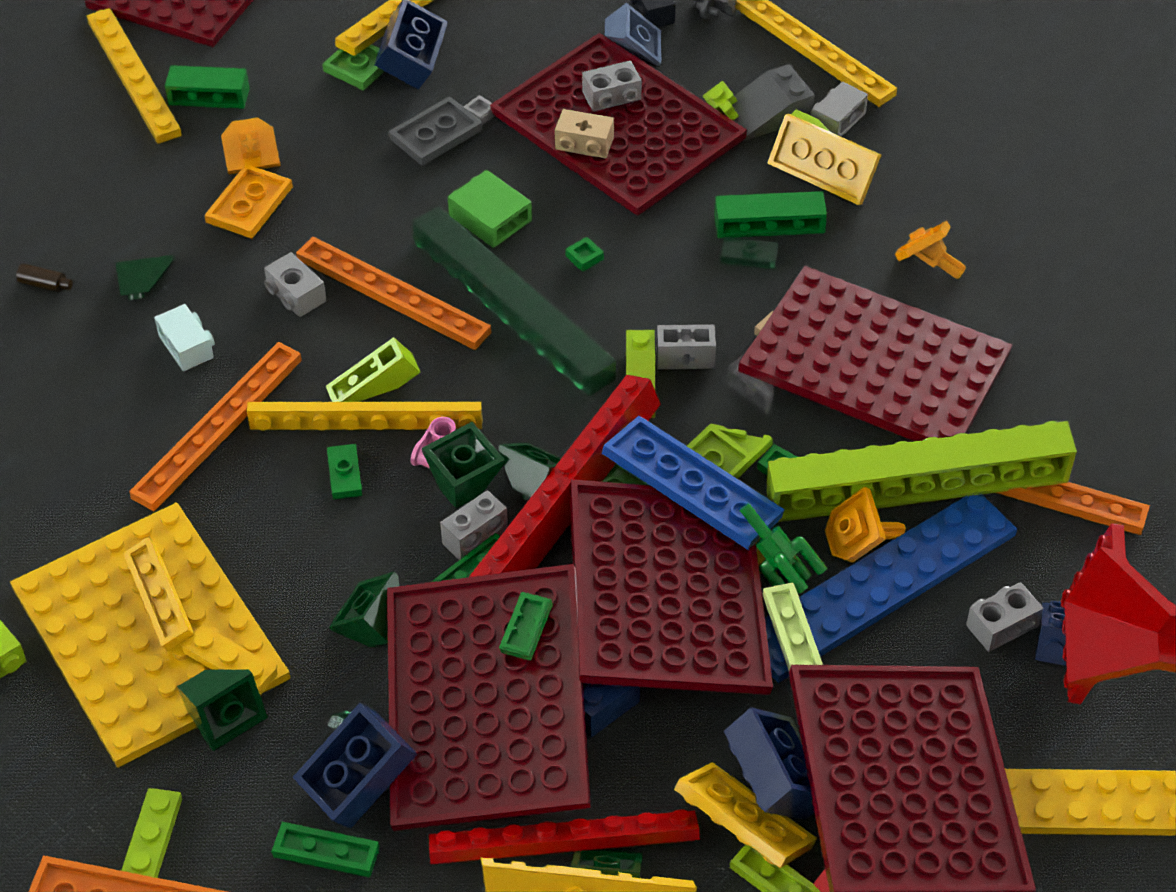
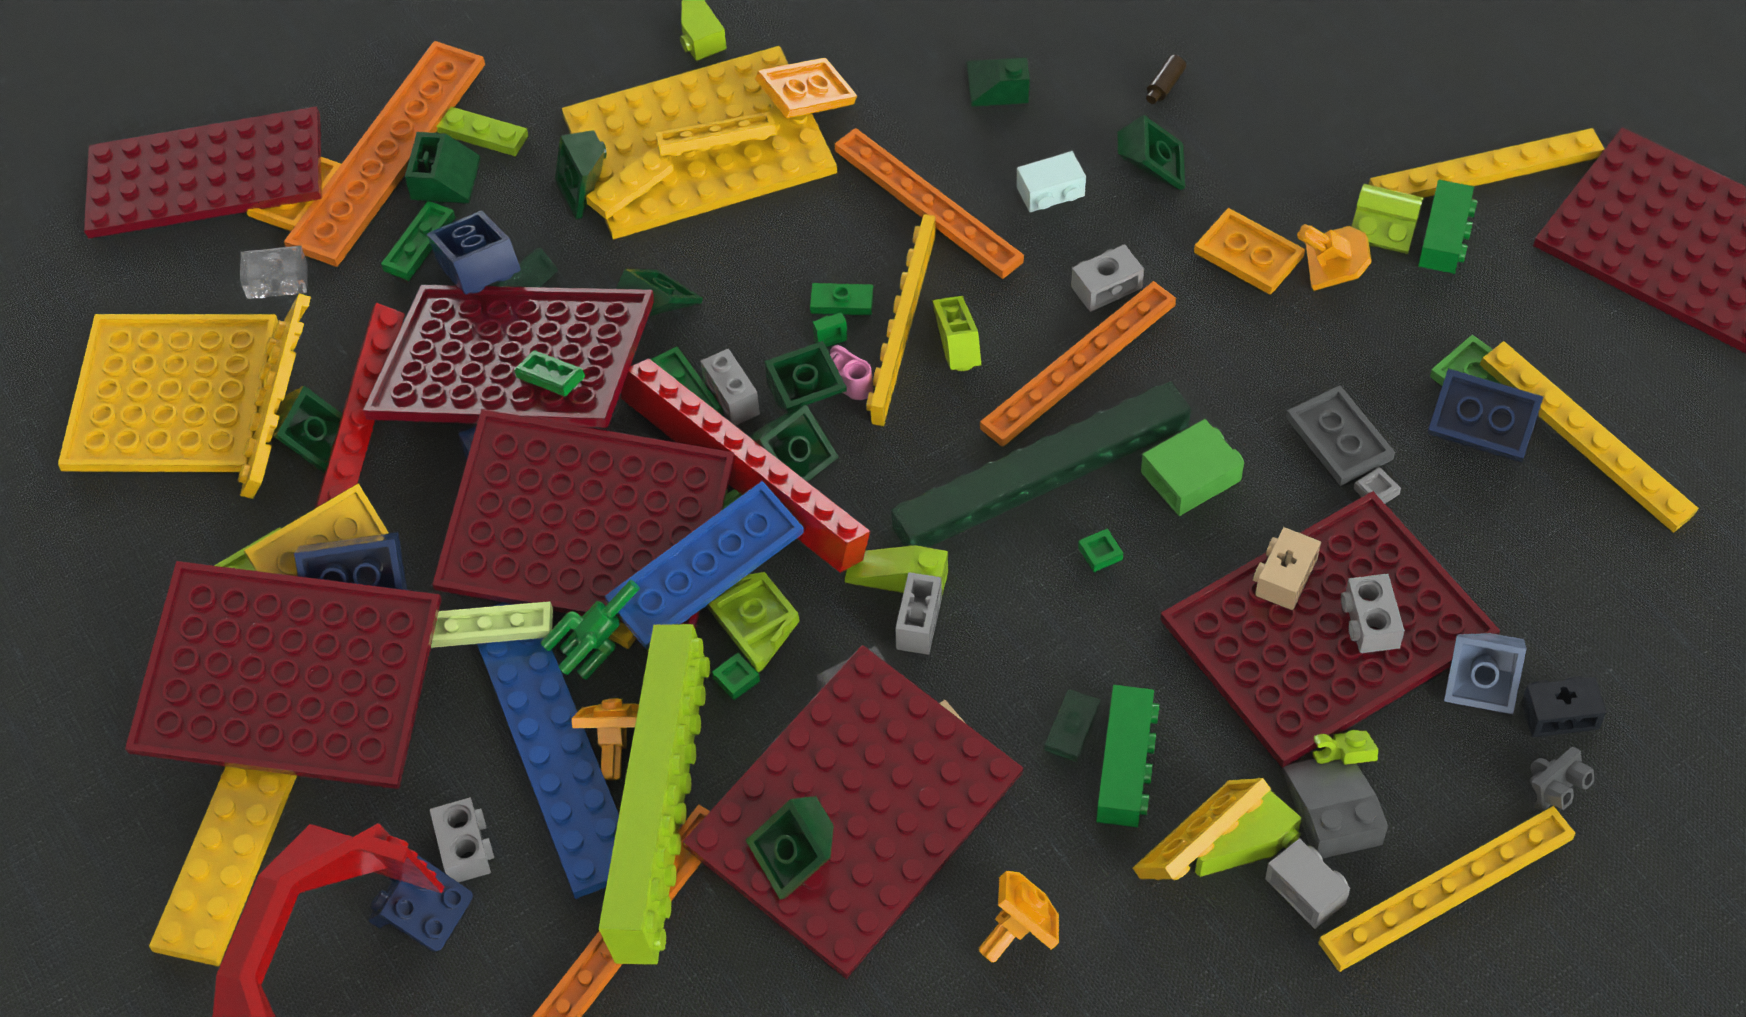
camera: 105 degrees right, 5 degrees up
(47, 396) = (998, 81): none -> dark green slope
(83, 534) = (805, 87): none -> light orange plate
(201, 119) = (1387, 217): none -> lime brick
(225, 852) = (441, 169): none -> dark green slope
(389, 466) = (830, 329): none -> green plate
(939, 366) = (793, 843): none -> dark green slope

